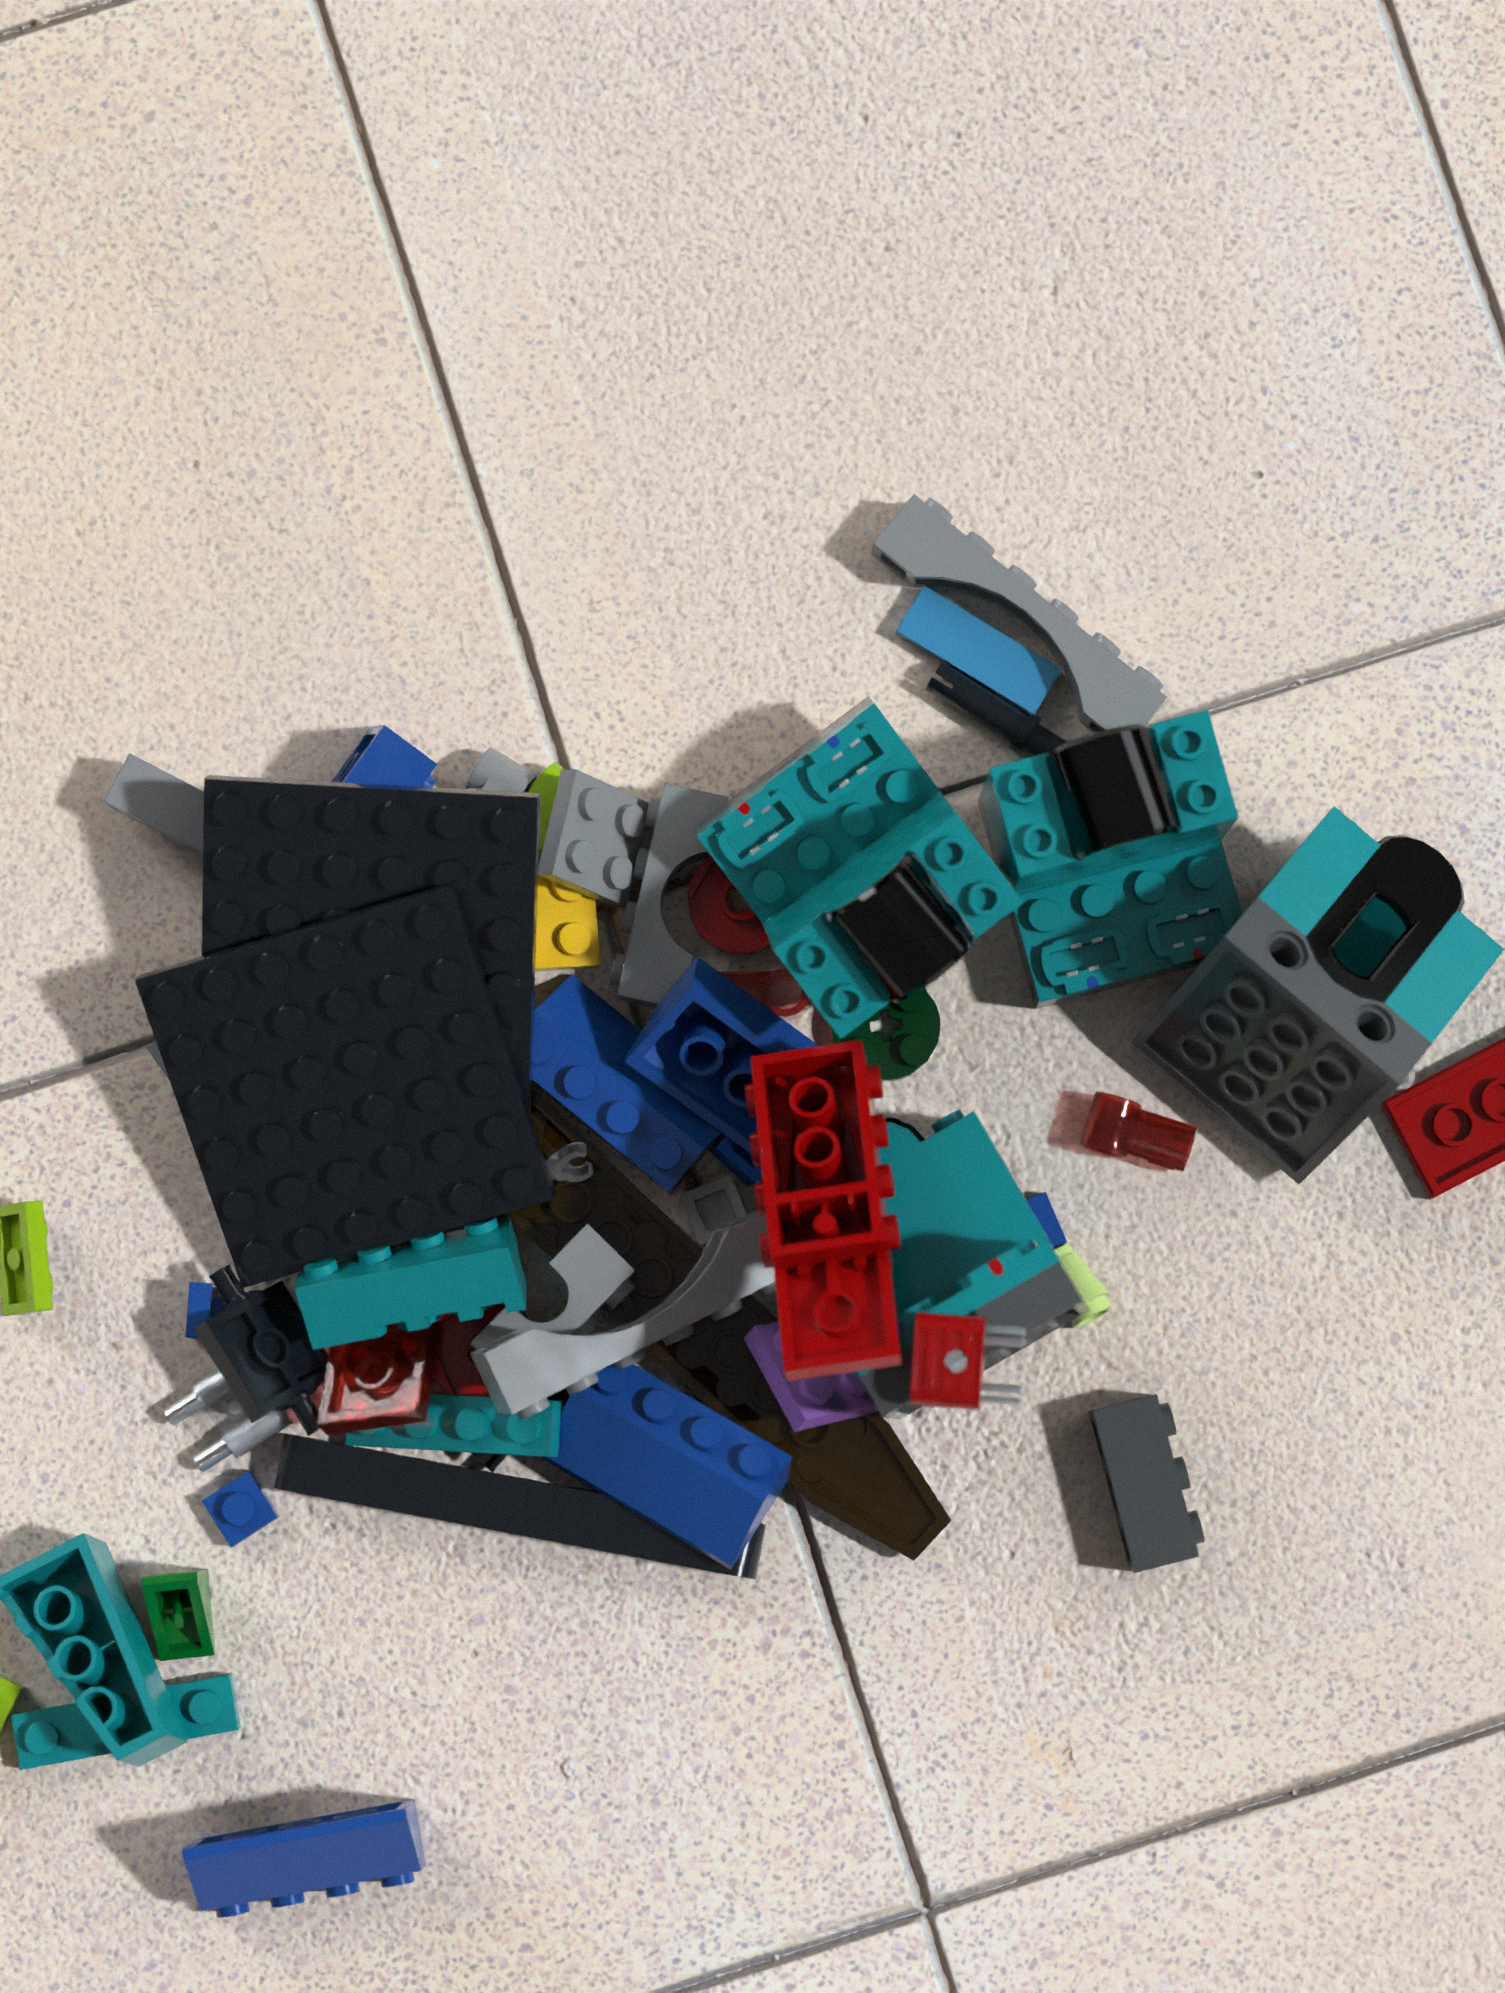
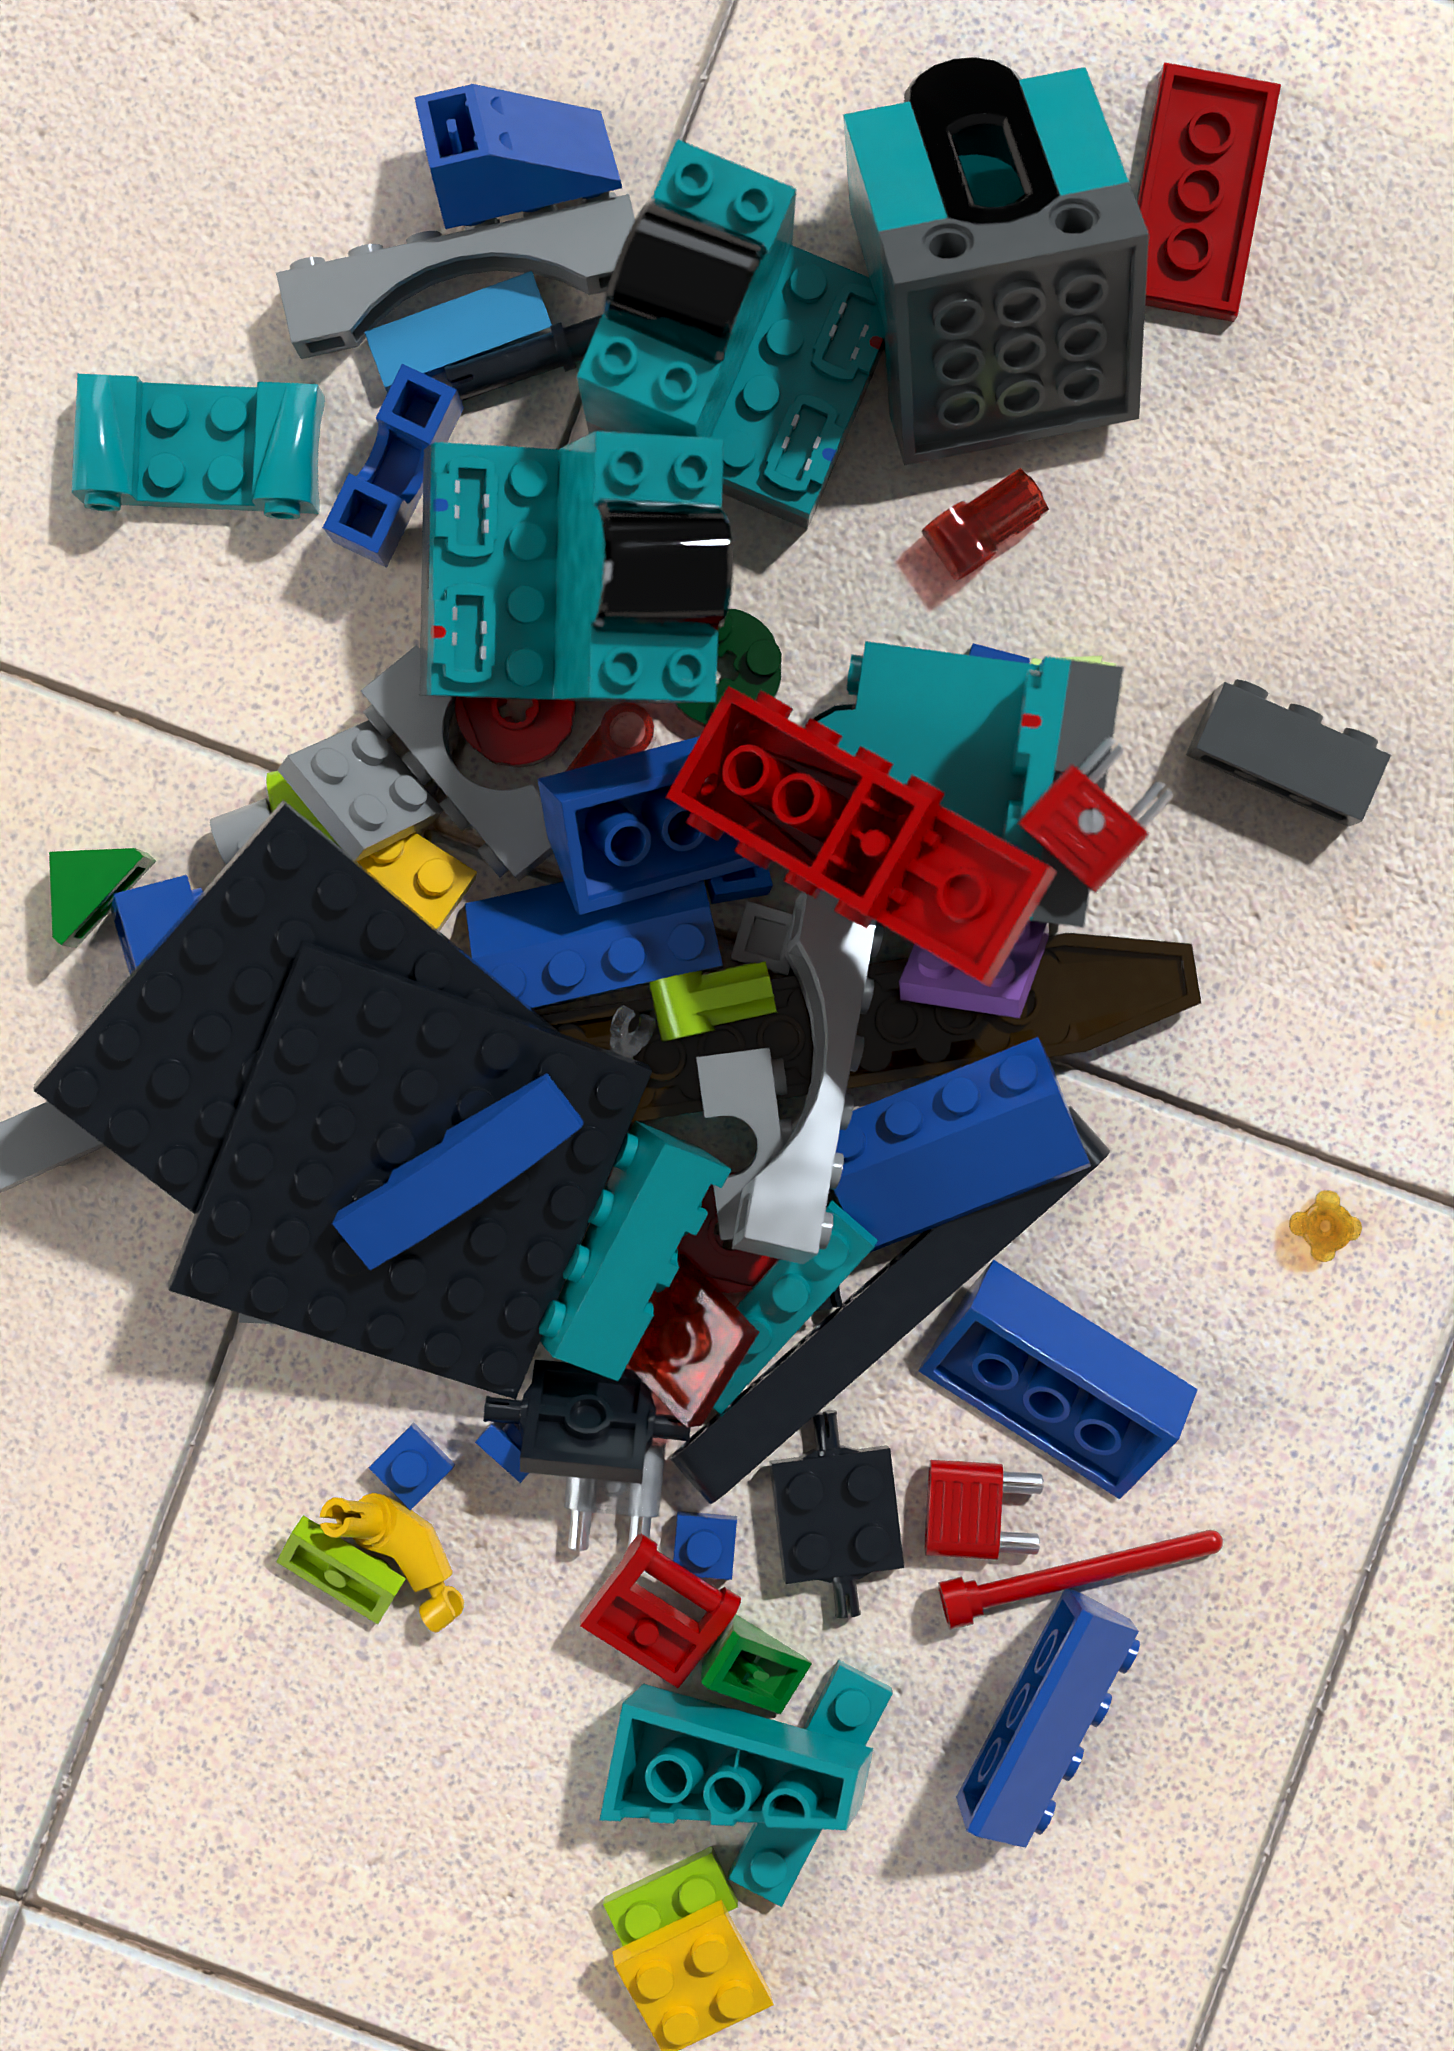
camera: 50 degrees left, 5 degrees up
(81, 1278) = (400, 1533): none -> yellow arm
(136, 1252) = (412, 1466): none -> blue plate
(151, 1514) = (648, 1626): none -> red plate
(337, 1587) = (836, 1514): none -> black plate
(348, 1732) = (967, 1600): none -> red piece
(375, 698) = (85, 887): none -> green slope
(375, 1118) = (458, 1172): none -> blue slope
(414, 1679) = (967, 1510): none -> red piece
(559, 1672) = (1059, 1380): none -> blue slope
(630, 1196) = (698, 1002): none -> lime piece
(750, 532) = (197, 445): none -> teal piece
(819, 690) = (383, 496): none -> blue arch
(834, 1794) = (1342, 1229): none -> clear yellow plate
(1131, 592) = (511, 152): none -> blue slope

